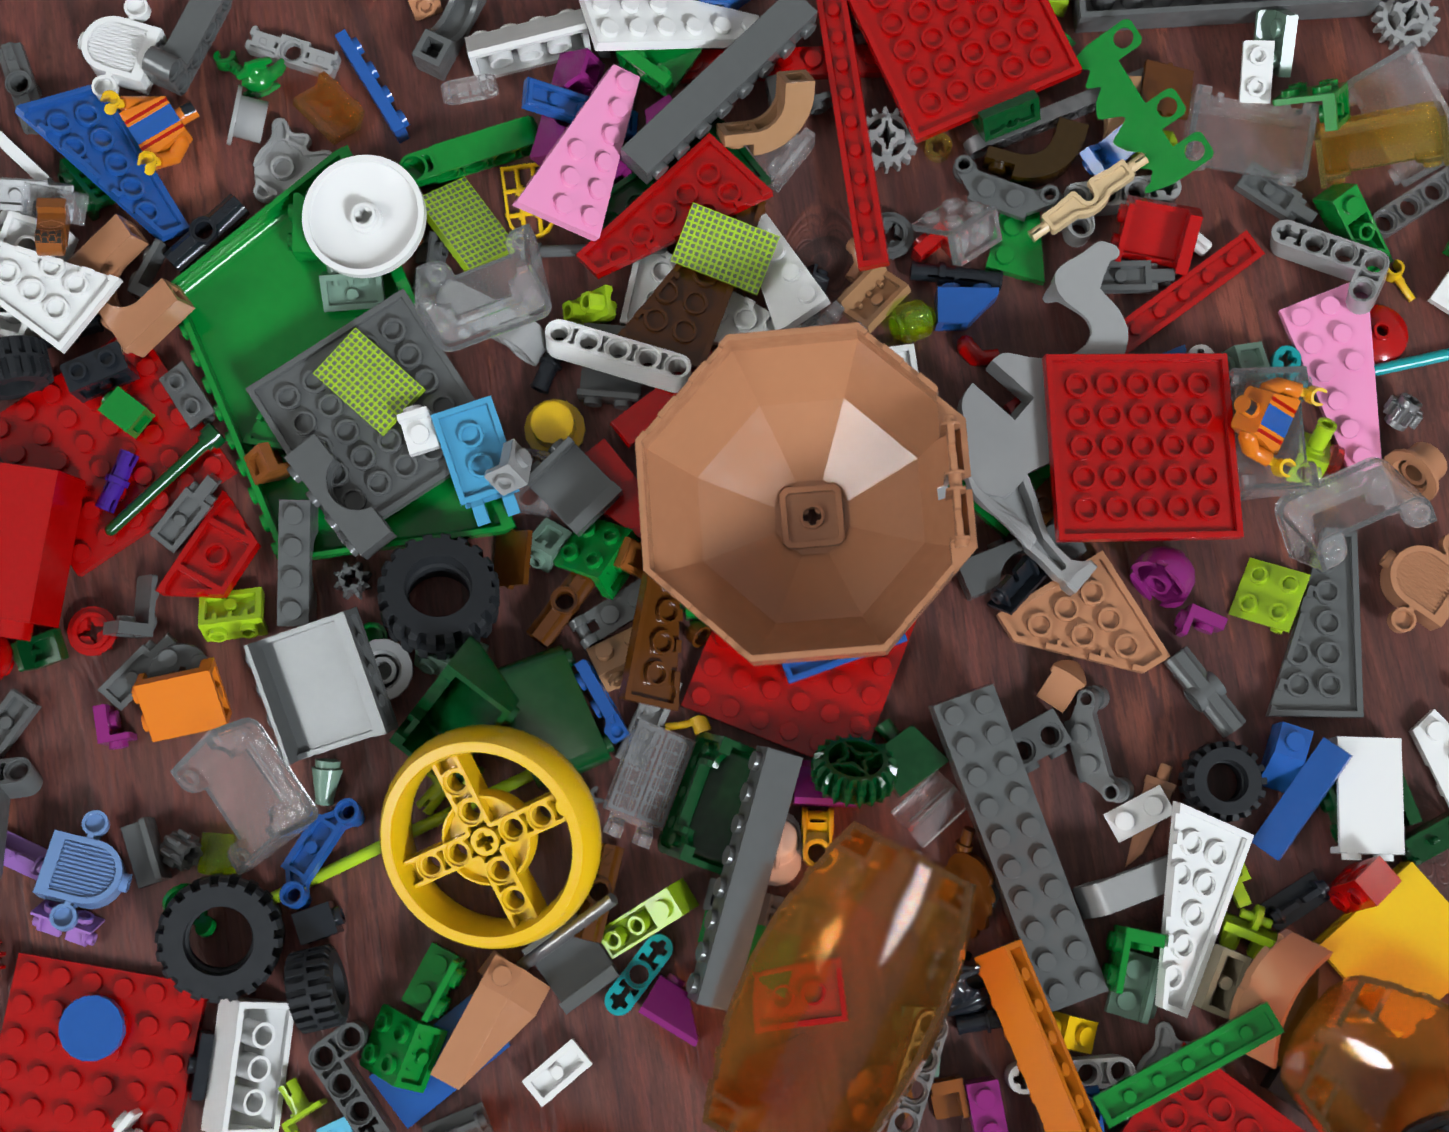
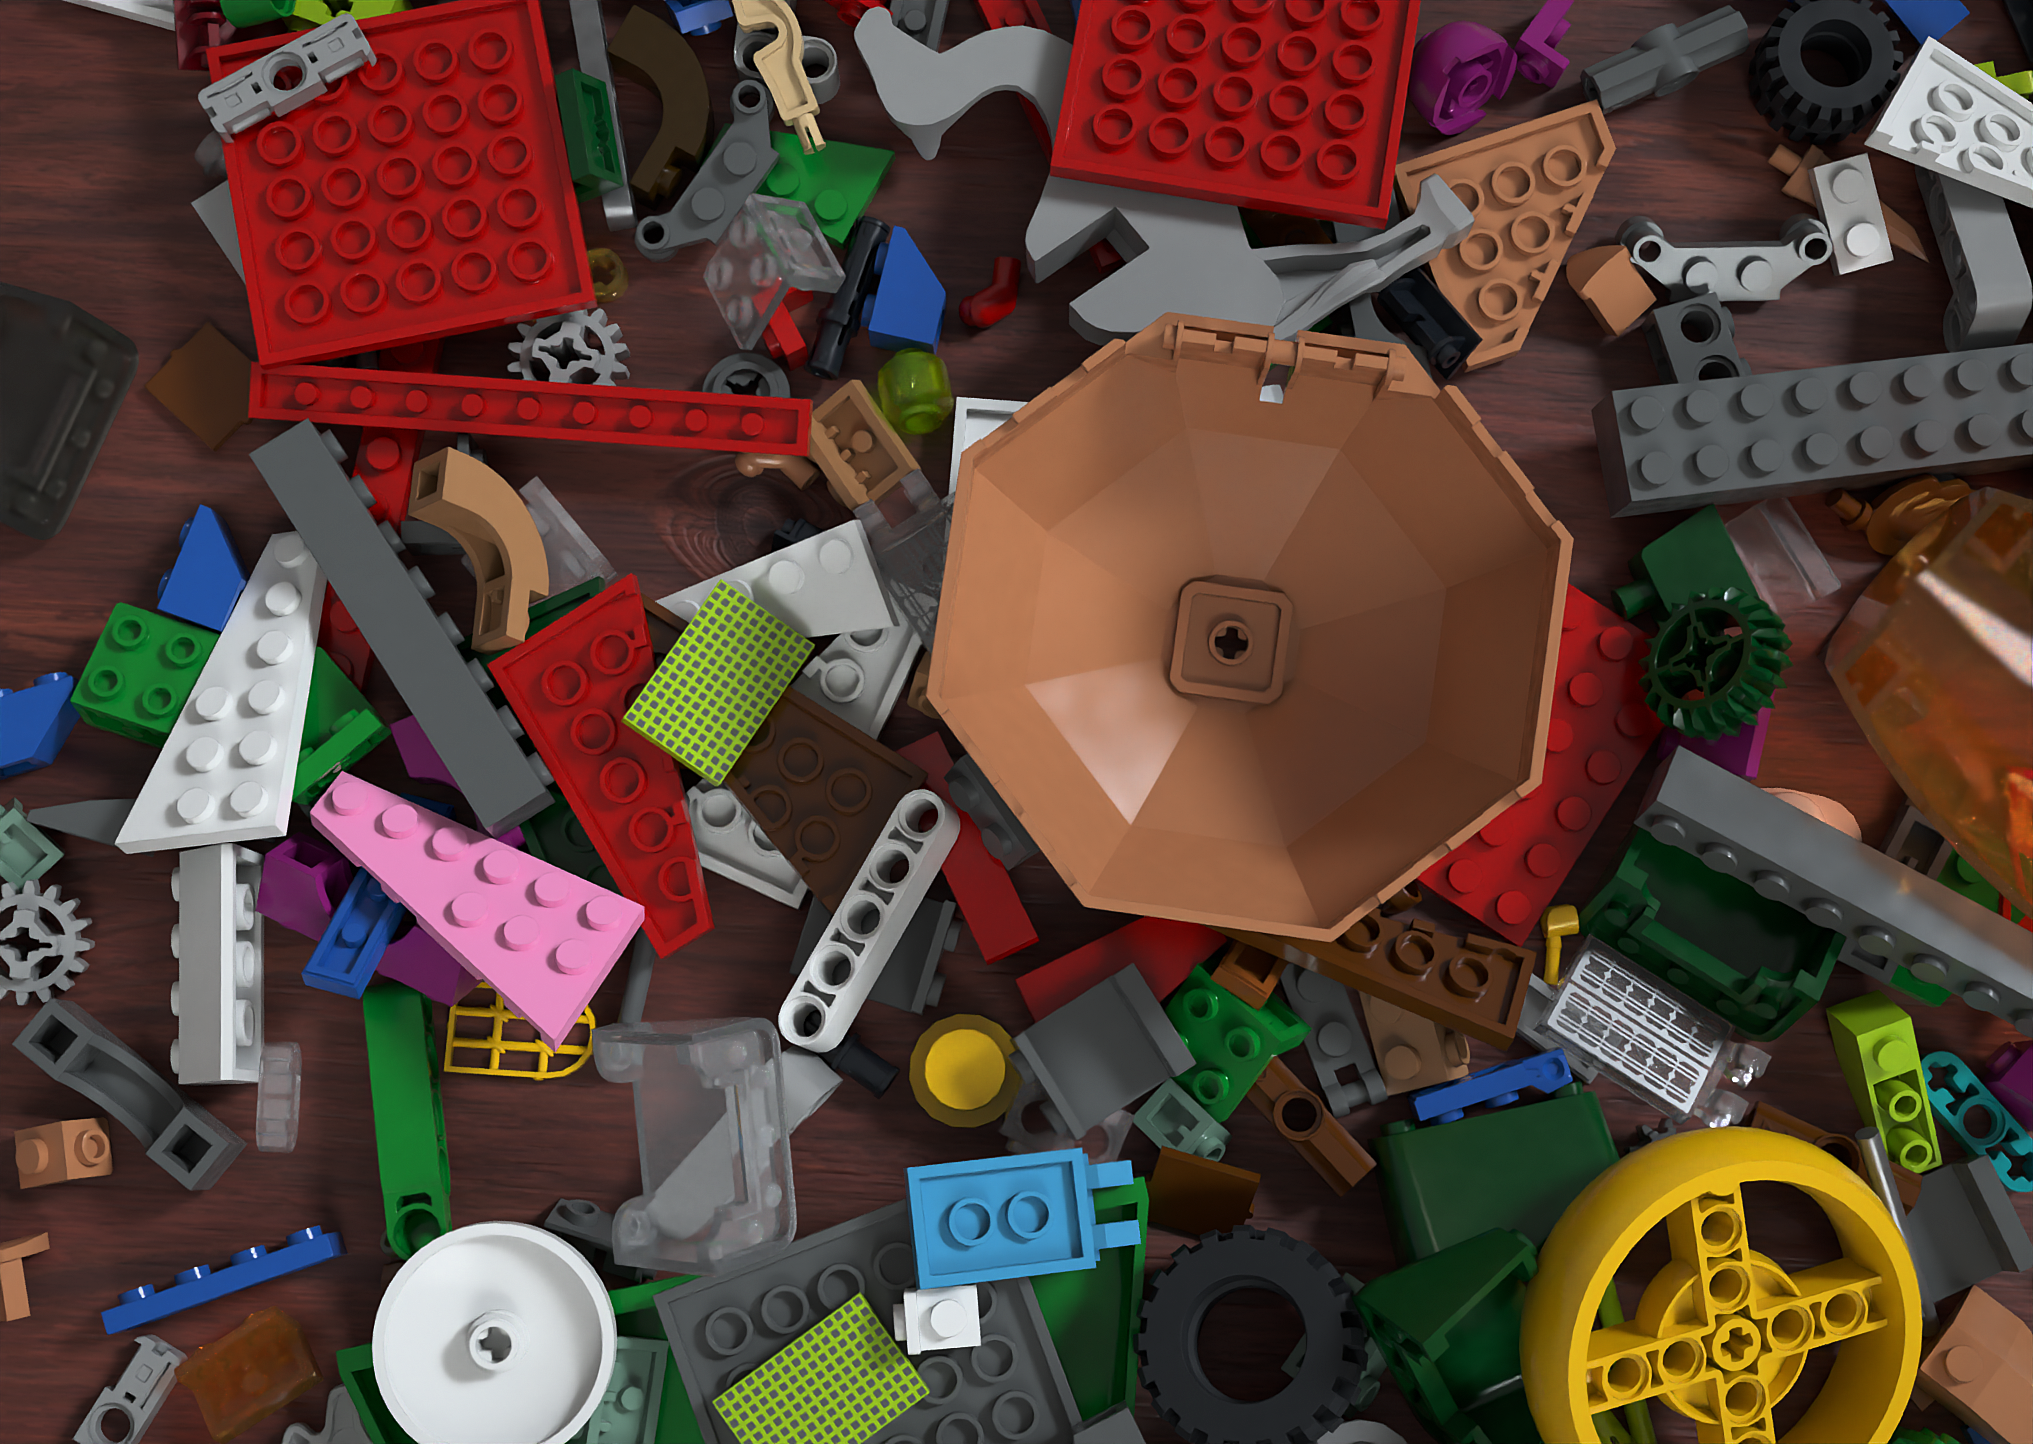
camera: 80 degrees left, 0 degrees up
(465, 224) = (546, 1154): lime tile -> none
(512, 470) = (1056, 1152): light grey bracket -> none
(591, 307) = (762, 955): lime hips -> none
(816, 832) = (1789, 760): yellow piece -> none

